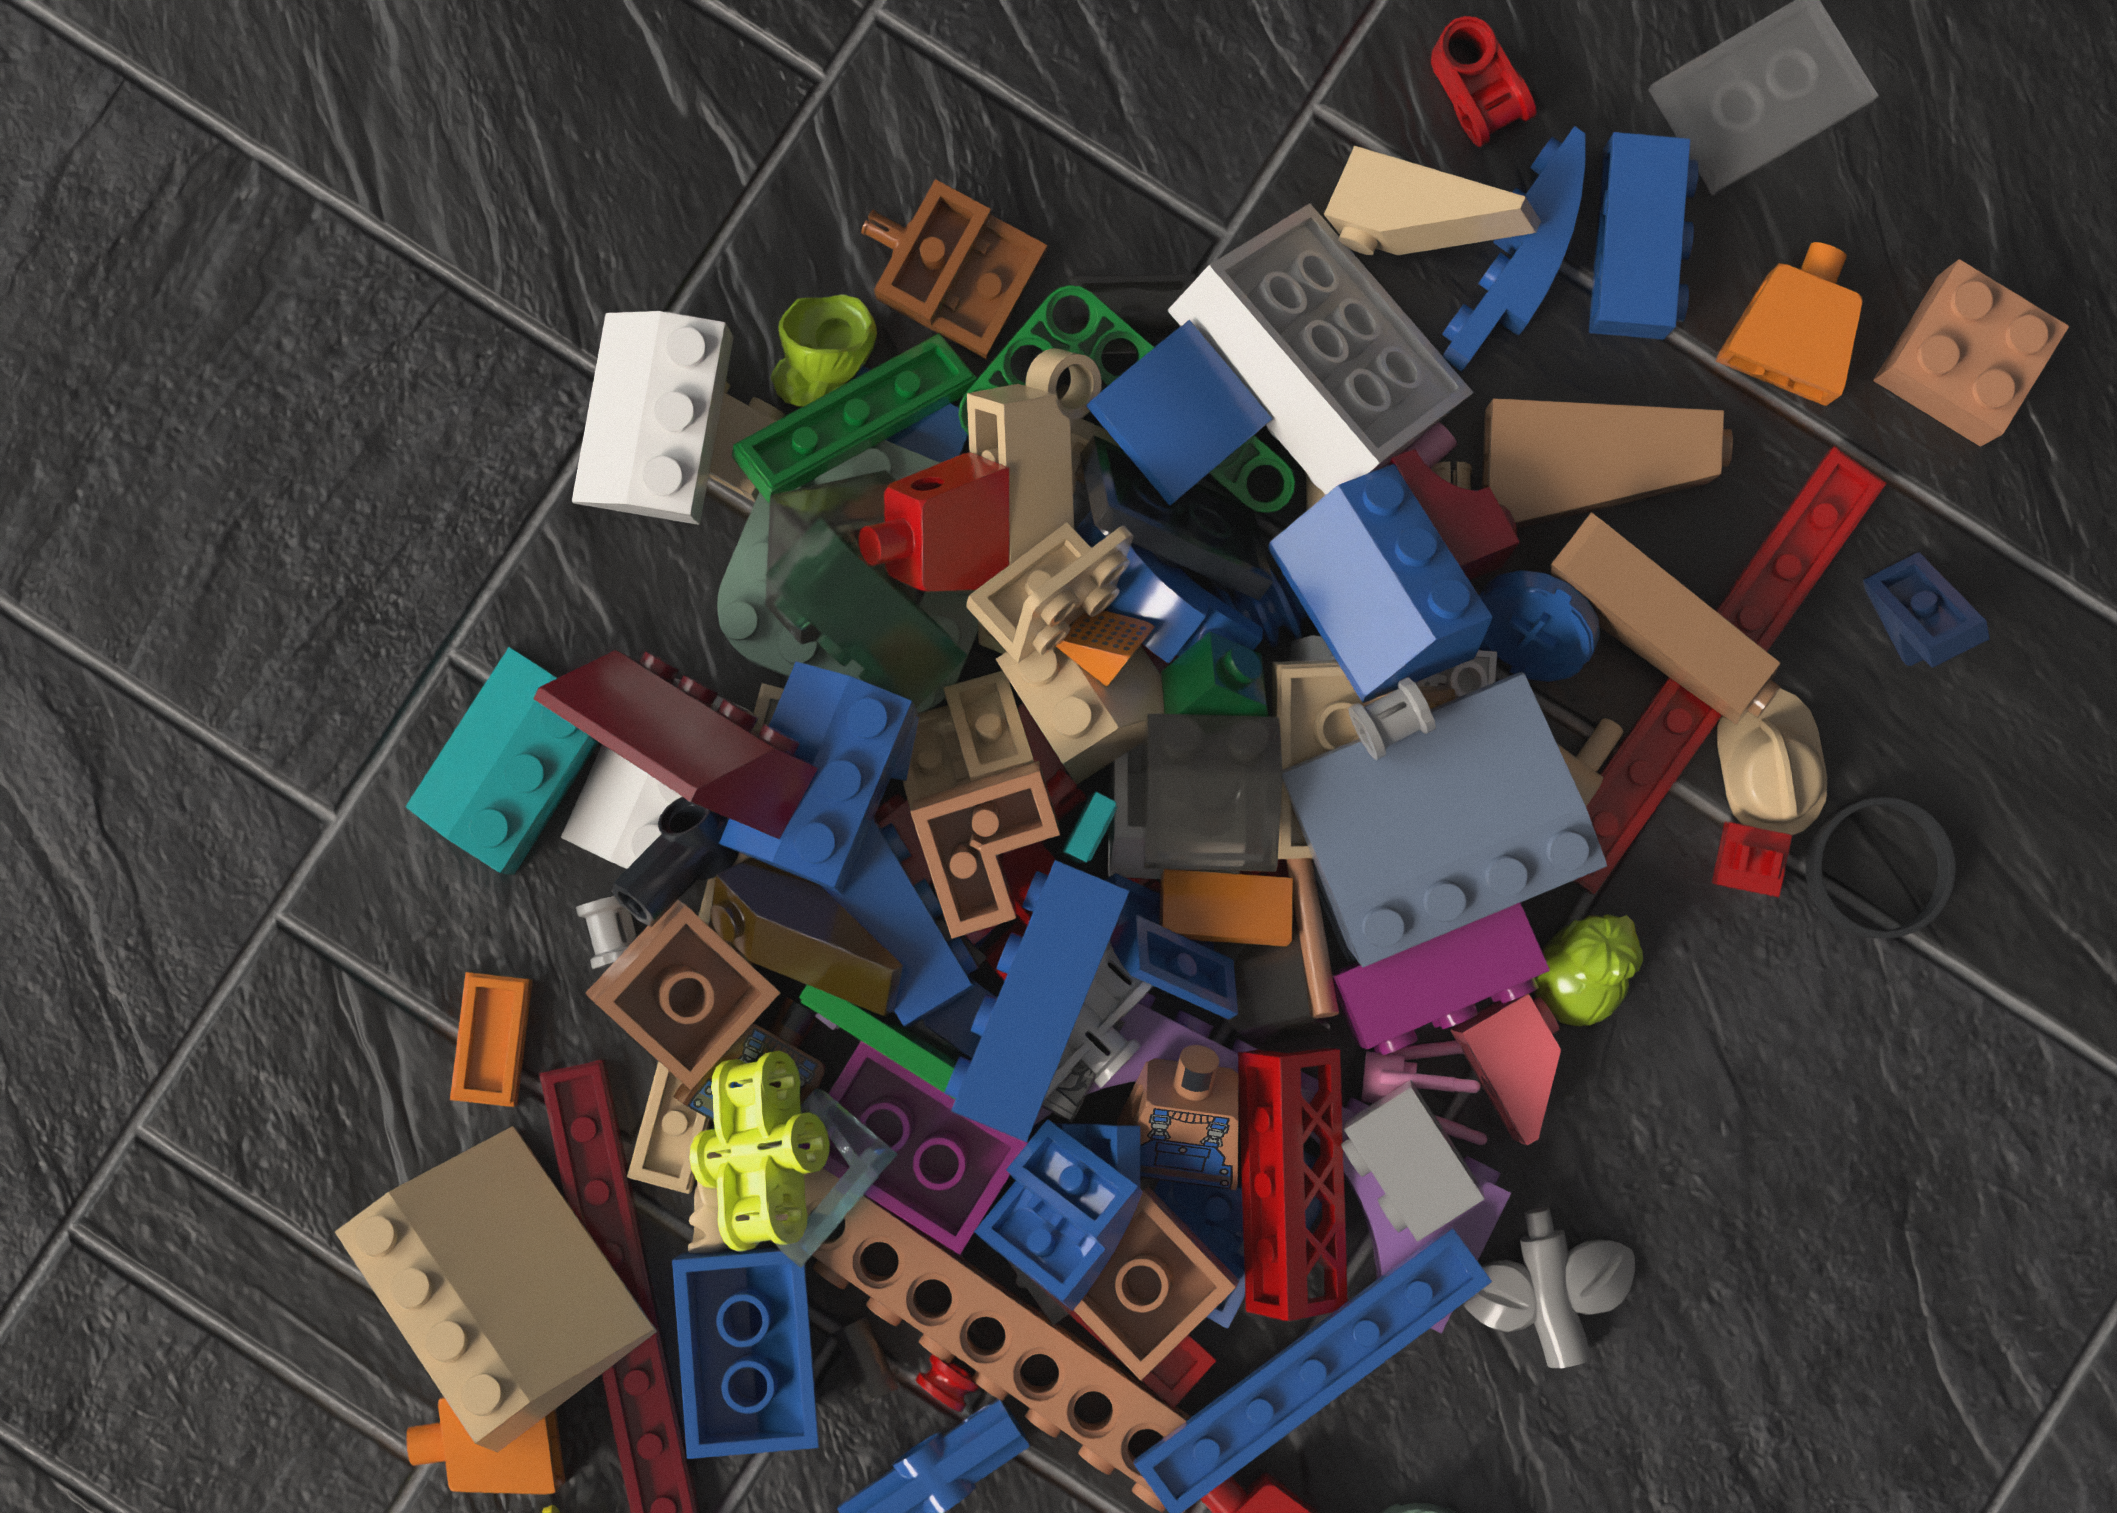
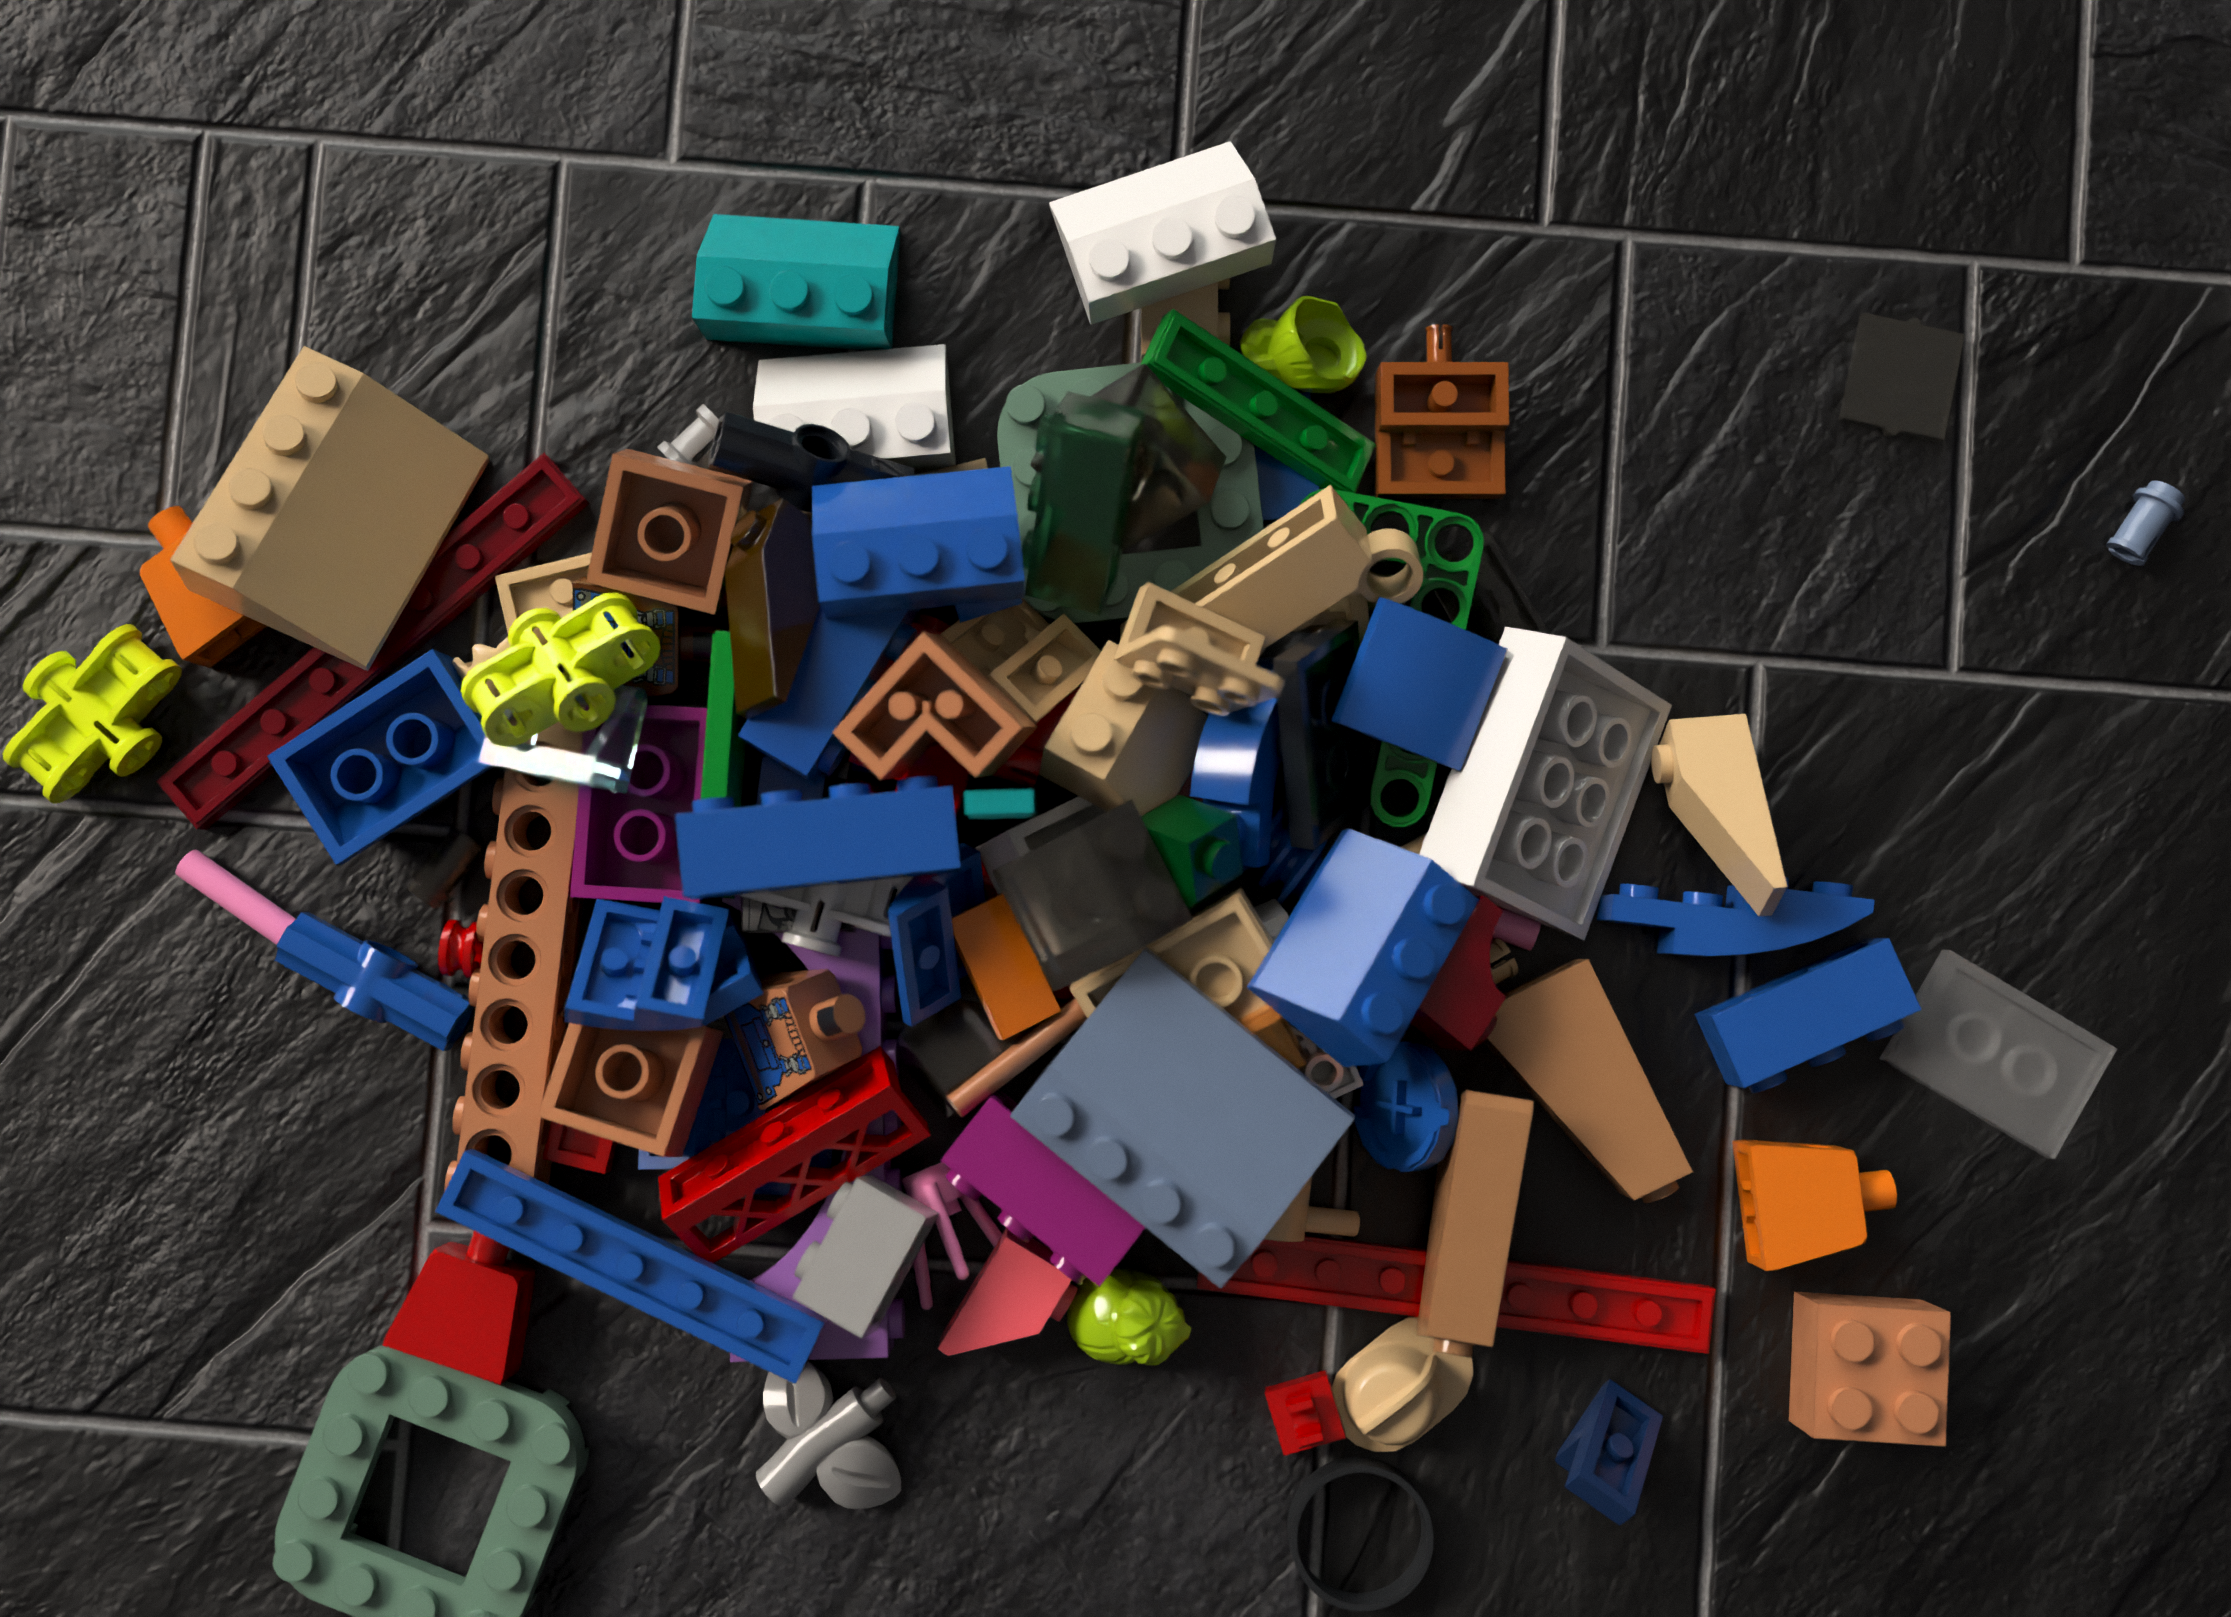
camera: 60 degrees right, 0 degrees up
(491, 1039) = (553, 396): orange tile -> none
(684, 738) = (882, 401): dark red slope -> none
(944, 526) = (1199, 527): red torso -> none
(1104, 643) = (1174, 728): orange slope -> none
(1392, 718) = (1246, 1020): light grey bush -> none
(1483, 83) = (1861, 806): red piece -> none

